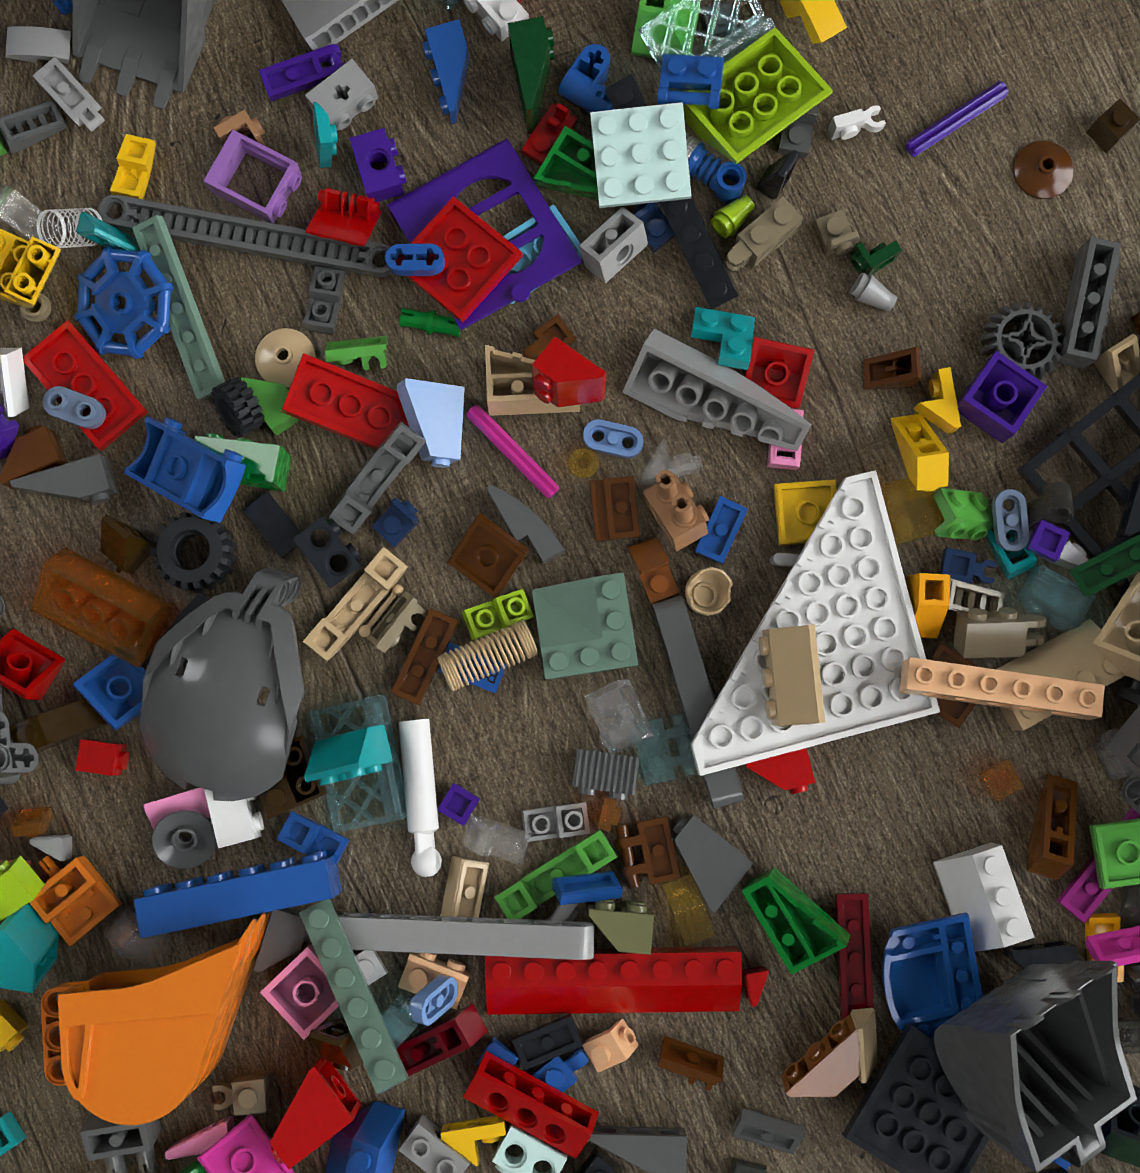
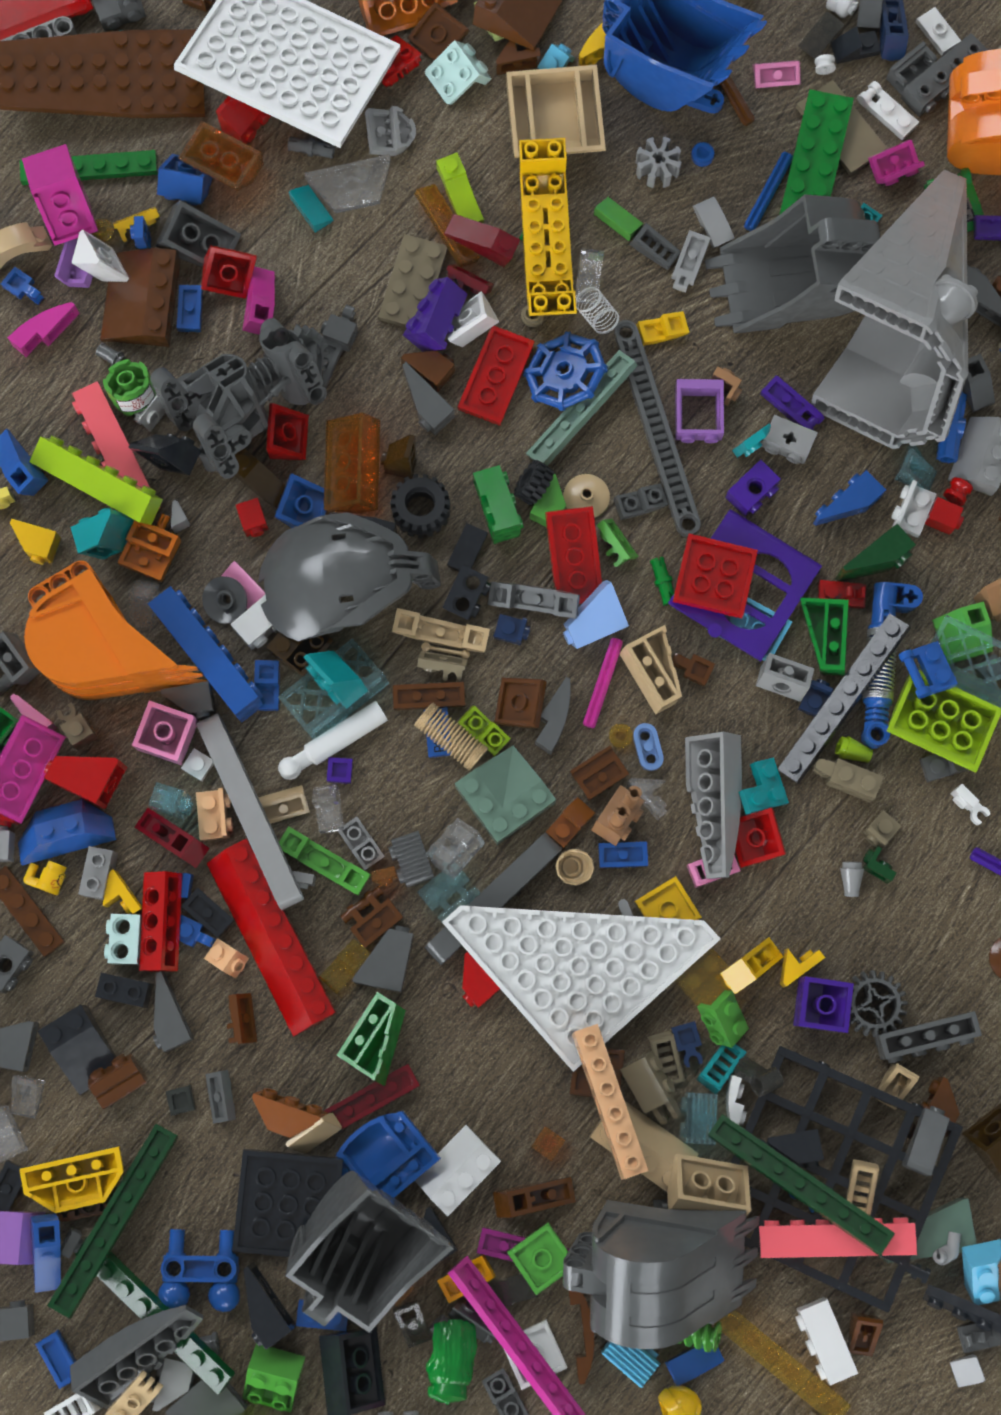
camera: 65 degrees right, 5 degrees down
(32, 822) = (186, 495): clear orange plate -> none
(72, 407) = (476, 375): sand blue plate -> none
(104, 234) = (605, 335): teal slope -> none
(187, 470) = (472, 472): blue piece -> none
(336, 1044) = (141, 772): dark brown slope -> none
(344, 220) = (703, 485): red hinge -> none
(353, 996) = (177, 761): sand green plate -> none
(415, 259) = (693, 549): blue beam -> none
(434, 1000) = (200, 818): medium blue plate -> none
(567, 377) = (667, 688): red slope -> none
(587, 888) = (326, 885): blue tile -> none
(625, 926) = (312, 924): olive slope -> none
(640, 155) = (854, 661): light aqua plate -> none
(754, 982) = (318, 1034): red slope -> none
(778, 175) = (898, 767): black slope -> none
(792, 675) = (541, 946): tan slope -> none
(893, 370) = (802, 918): reddish brown slope -> none
(929, 601) = (646, 1026): light orange slope -> none
(1014, 519) = (737, 1055): sand blue plate -> none
(1047, 540) = (735, 1087): dark purple plate -> none

